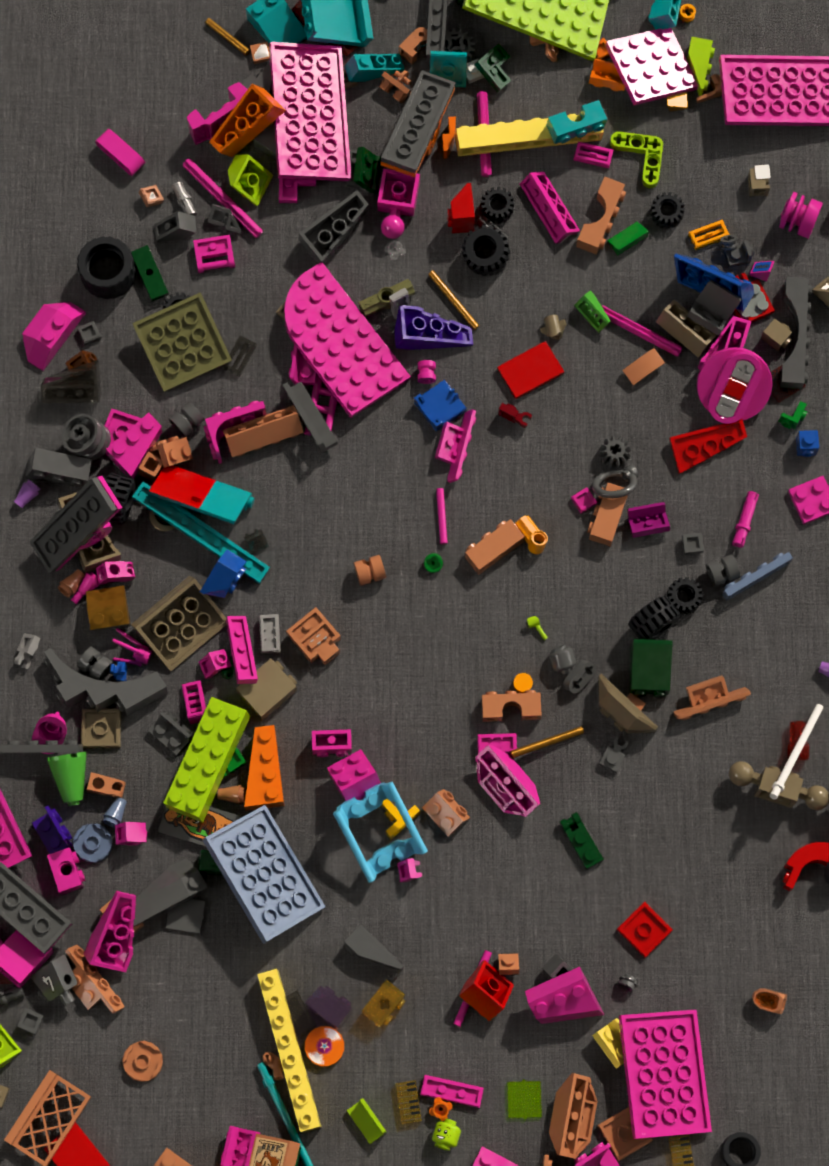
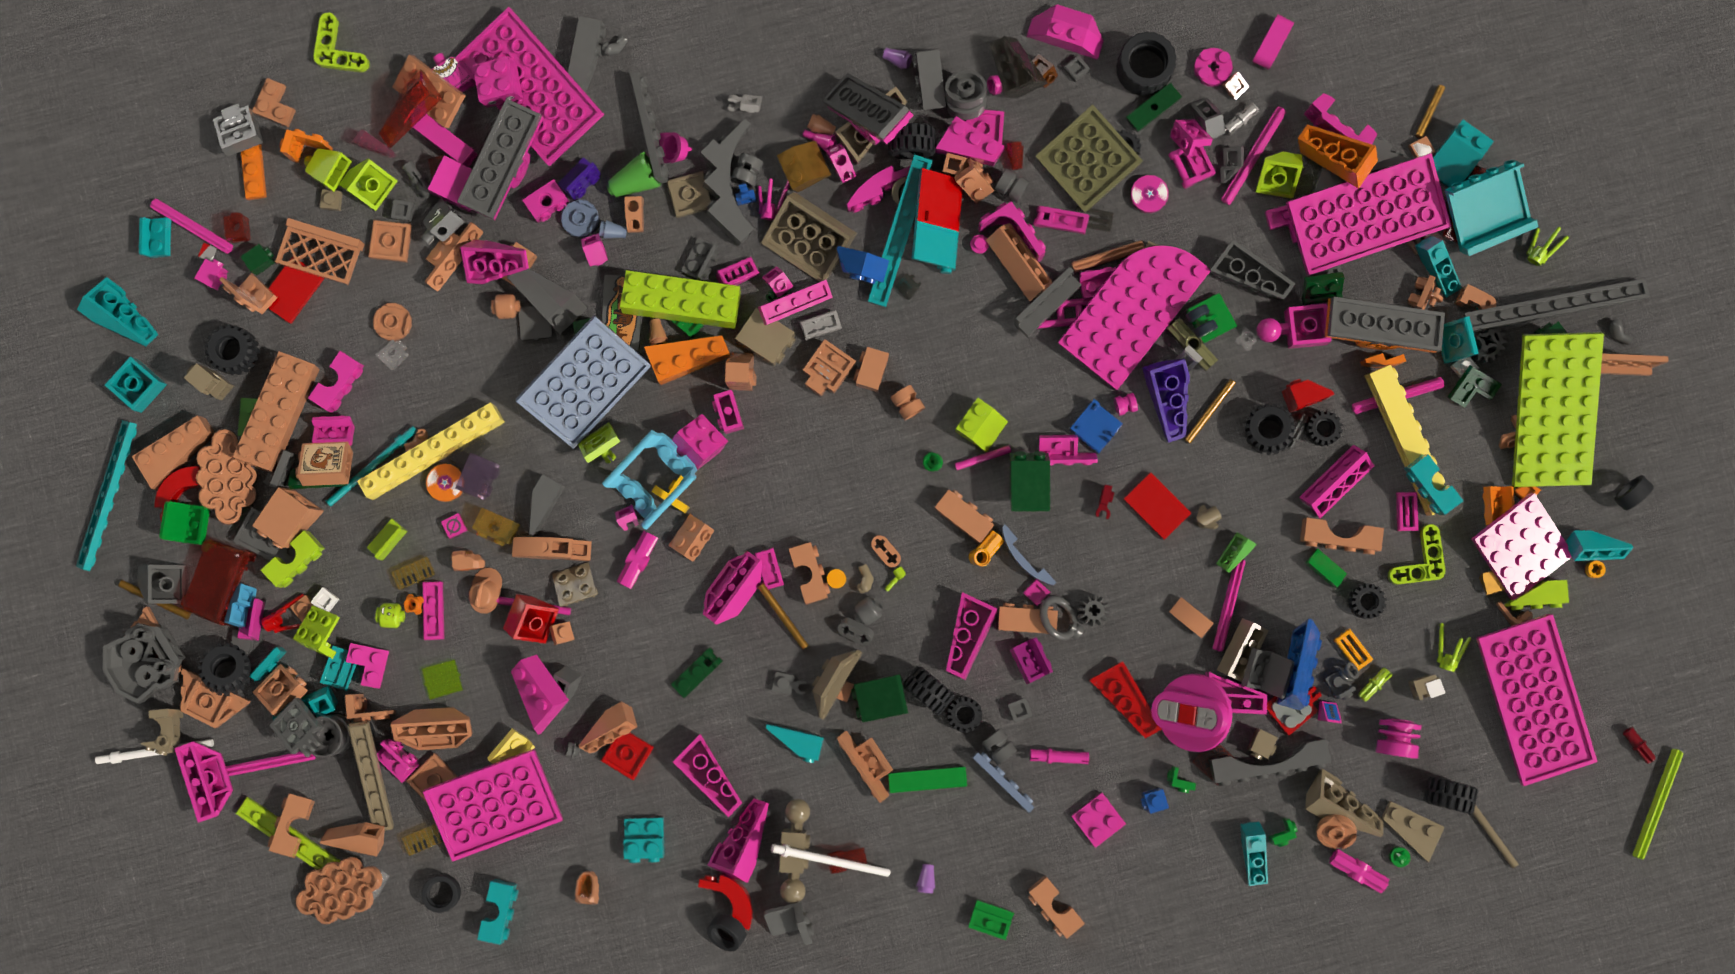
camera: 80 degrees right, 10 degrees up
(58, 1043) = (390, 241): none -> nougat tile
(84, 408) = (994, 85): none -> dark pink tile
(122, 202) = (1204, 73): none -> dark pink plate
(151, 549) = (871, 190): none -> dark pink slope
(157, 409) = (1015, 154): none -> clear red cone
(161, 938) = (505, 306): none -> nougat head
(177, 1074) = (395, 360): none -> clear brick
(187, 247) = (1189, 134): none -> dark pink bracket
(203, 1145) = (347, 370): none -> dark pink arch
(231, 299) = (1149, 194): none -> dark pink tile
(233, 383) = (1061, 220): none -> dark pink plate
(233, 465) = (979, 244): none -> dark pink plate
(280, 362) = (1107, 256): none -> nougat axle
(295, 718) = (740, 371): none -> nougat wedge
(327, 596) = (872, 369): none -> nougat brick
(328, 876) = (599, 444): none -> lime tile
(365, 275) = (1210, 318): none -> green plate
(371, 1048) = (454, 526): none -> dark pink tile
(409, 508) = (981, 425): none -> lime slope
(410, 1042) = (466, 561): none -> nougat rock
(420, 952) = (551, 548): none -> nougat slope
(445, 1032) = (485, 590): none -> nougat piece
(454, 870) = (637, 559): none -> dark pink piece
(463, 939) = (574, 584): none -> dark tan hinge
(478, 475) = (1029, 481): none -> dark green slope
(507, 624) = (881, 553): none -> nougat beam
(531, 653) = (867, 580): none -> dark tan arm
(551, 505) = (1041, 576): none -> sand blue slope
(608, 569) = (970, 631): none -> dark pink wedge
(613, 935) = (611, 725): none -> nougat slope
(676, 755) = (801, 743): none -> teal slope
(683, 854) = (705, 772): none -> dark pink wedge
(733, 933) = (644, 839): none -> teal plate
(738, 646) = (927, 779): none -> green tile
(741, 155) = (1450, 662): none -> lime plant
(745, 223) = (1374, 684): none -> lime axle
(765, 841) = (740, 850): none -> dark pink wedge
(789, 1103) = (503, 895): none -> teal arch

